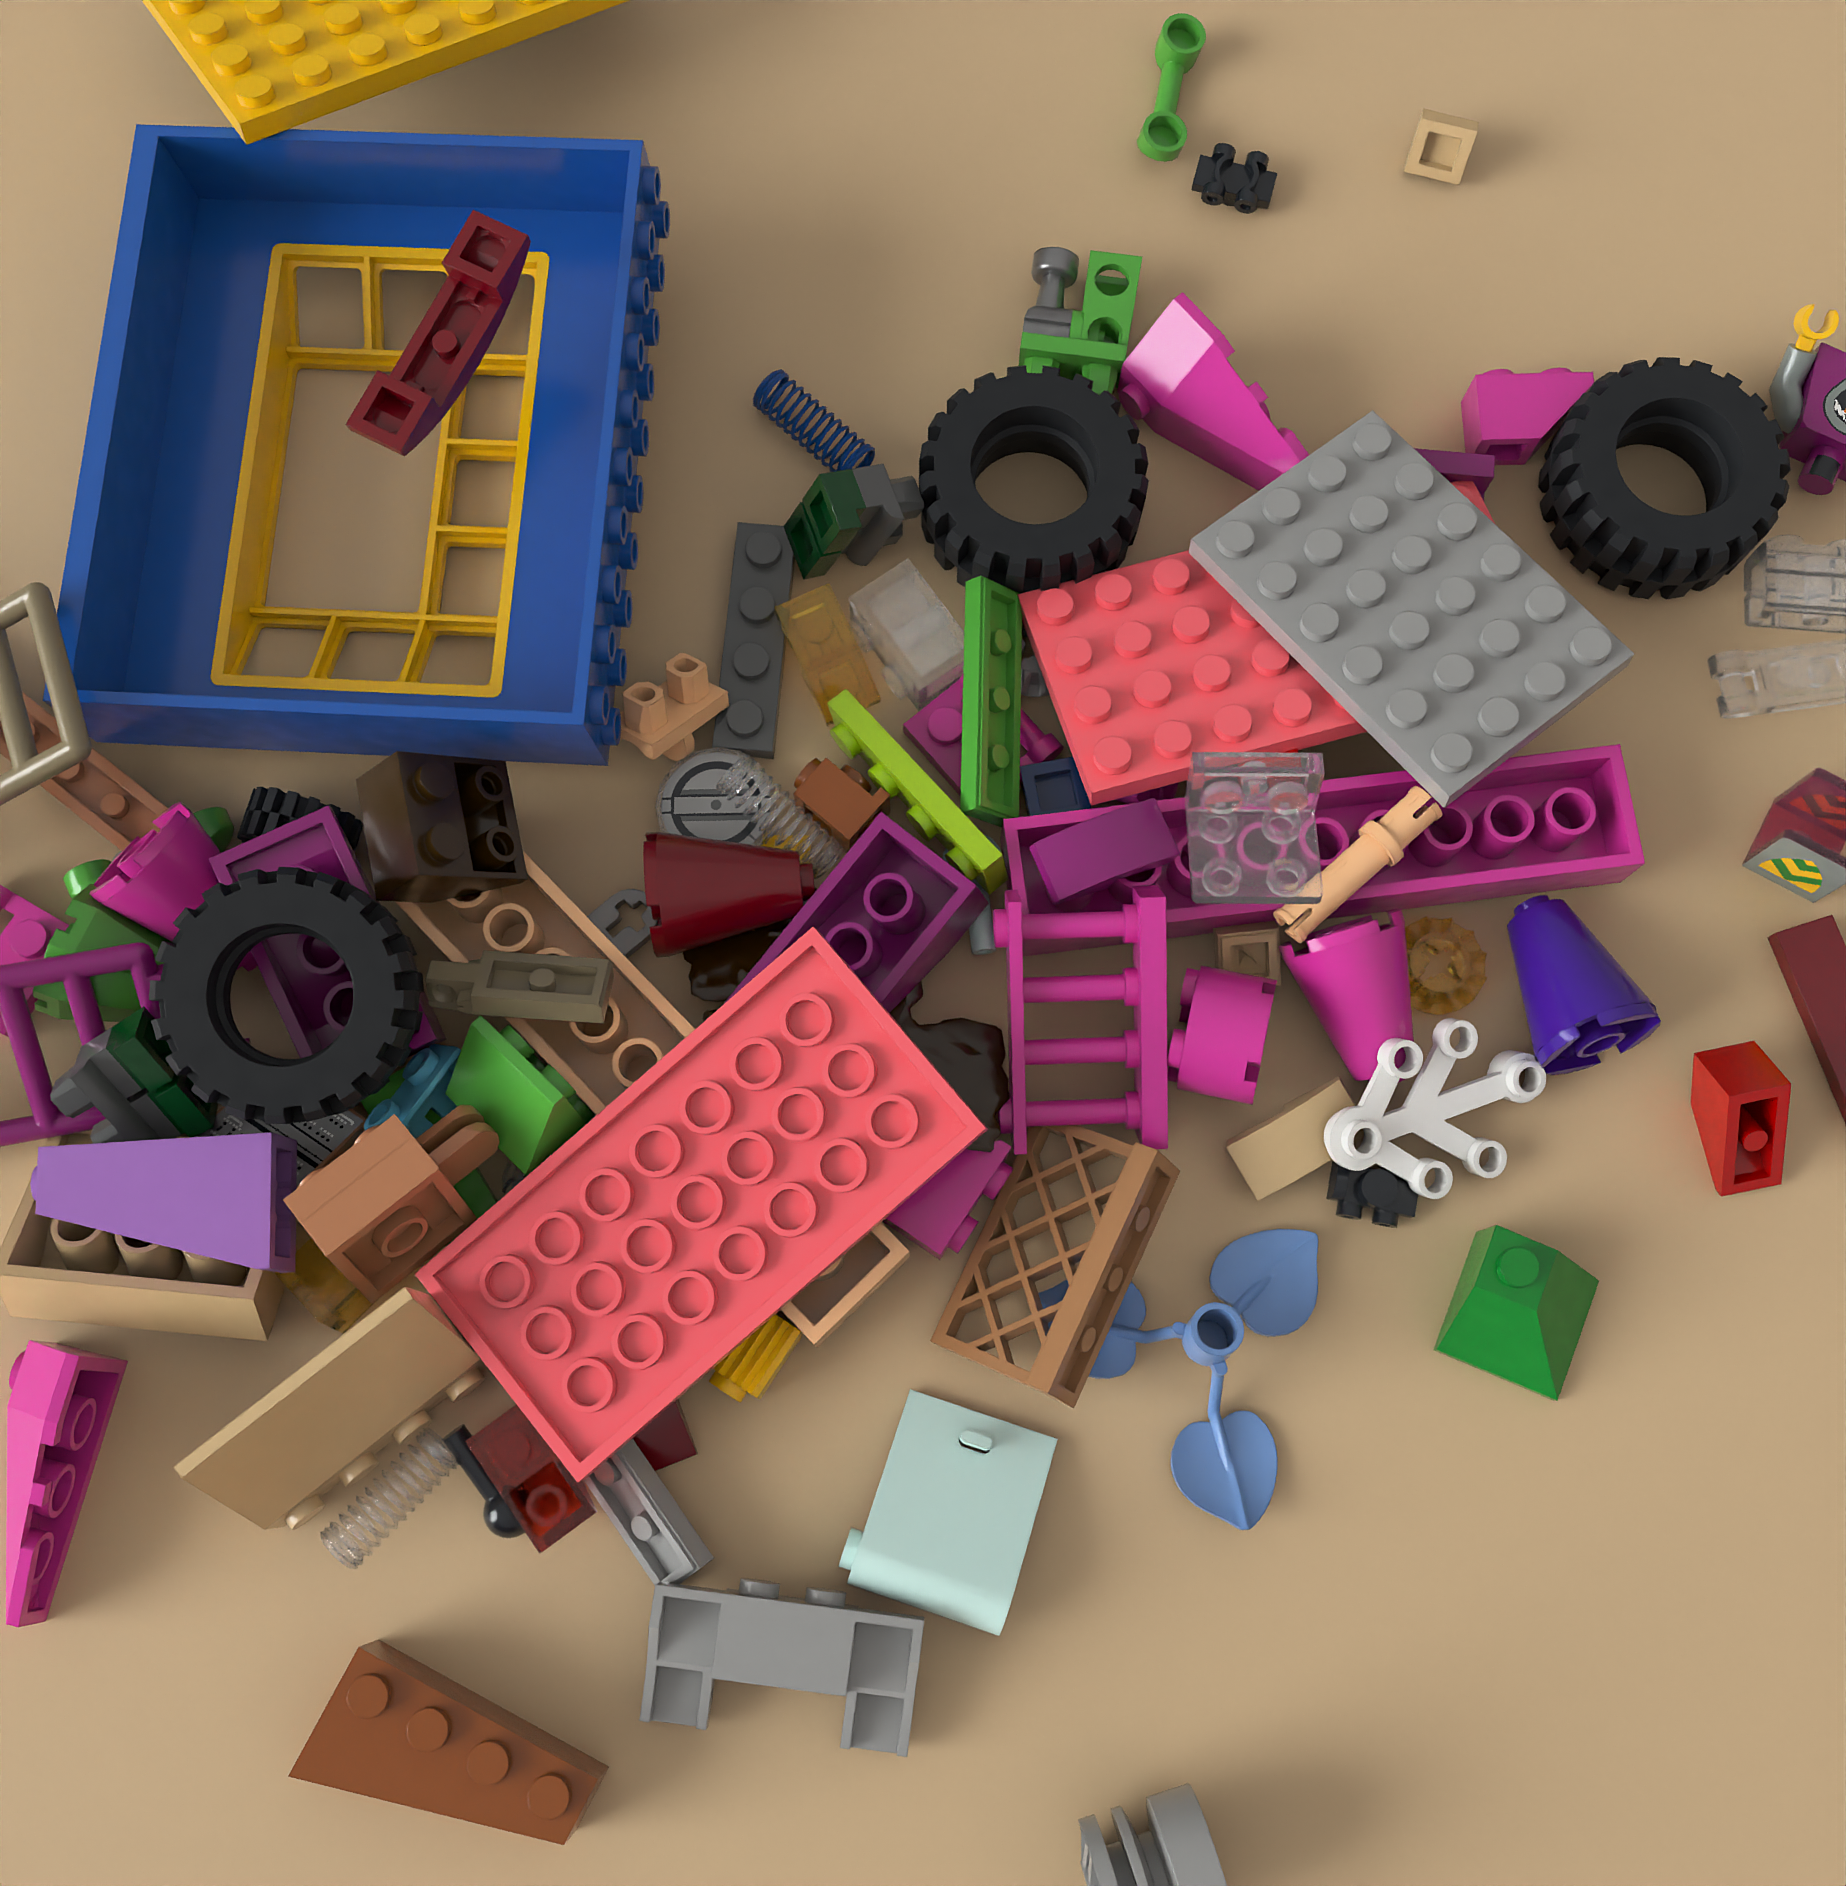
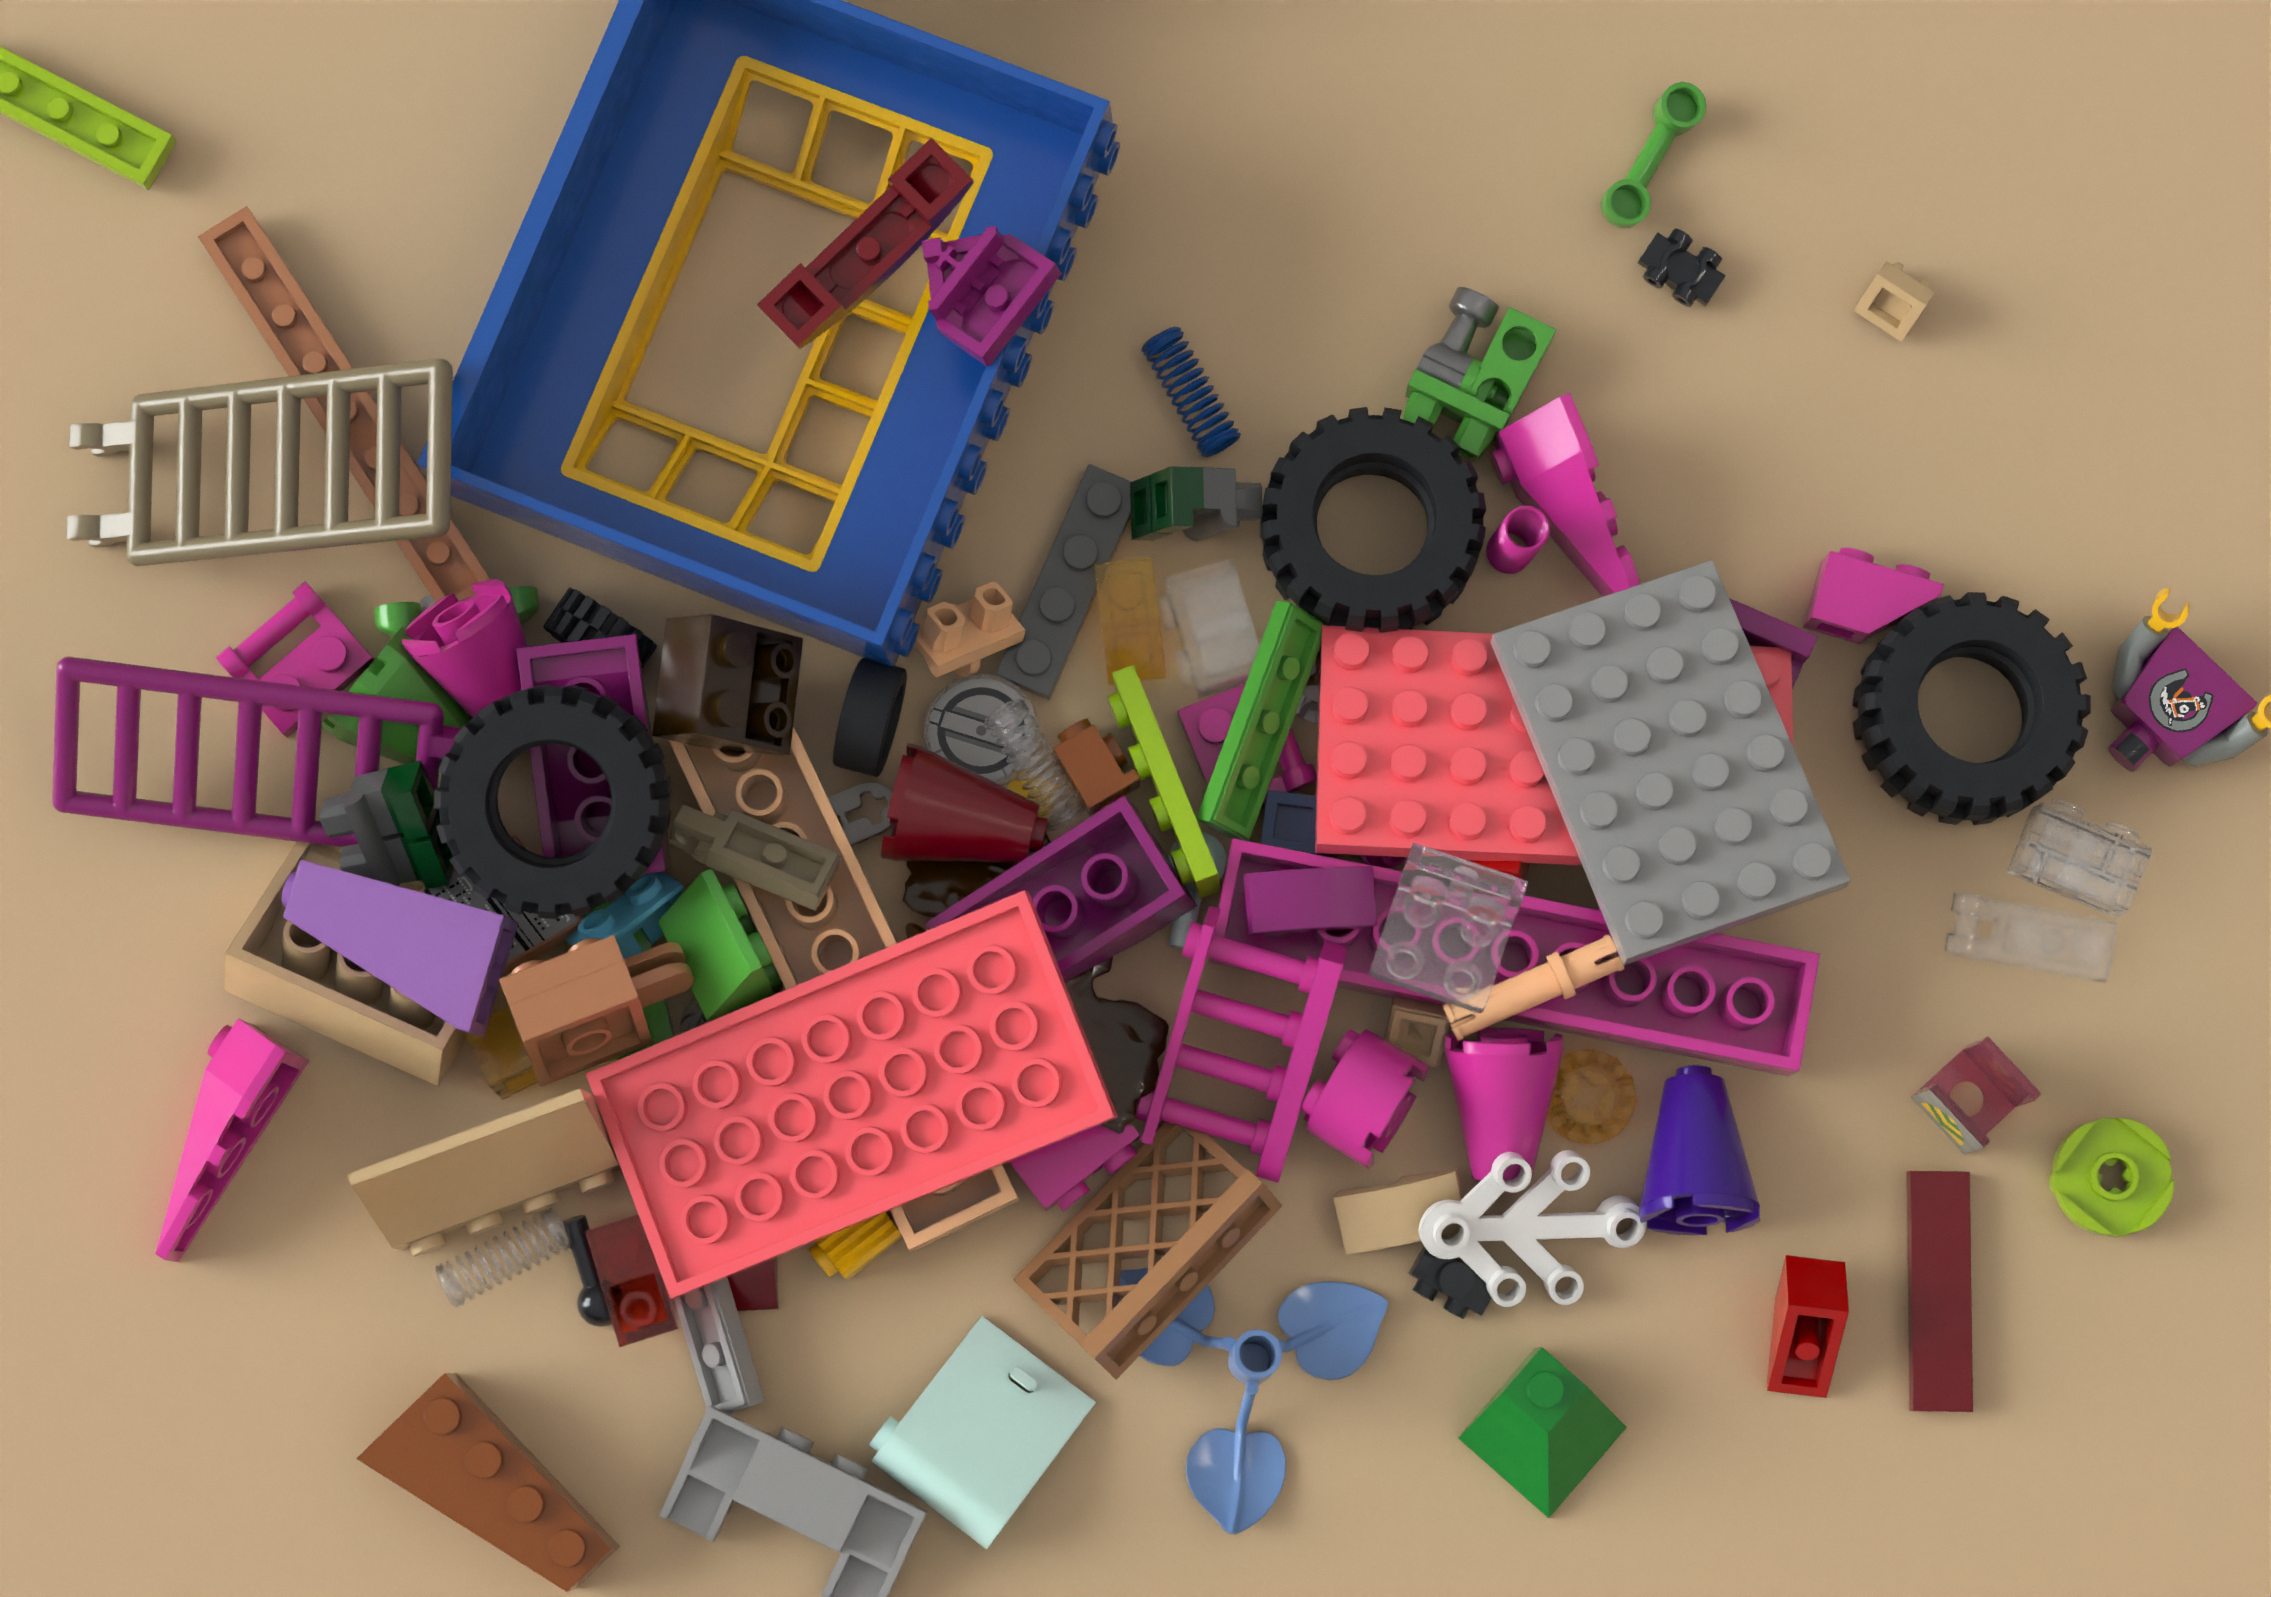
camera: 20 degrees right, 5 degrees up
(576, 345) = (985, 289): none -> magenta slope
(599, 822) = (869, 717): none -> black tyre
(1168, 443) = (1530, 526): none -> dark pink piece

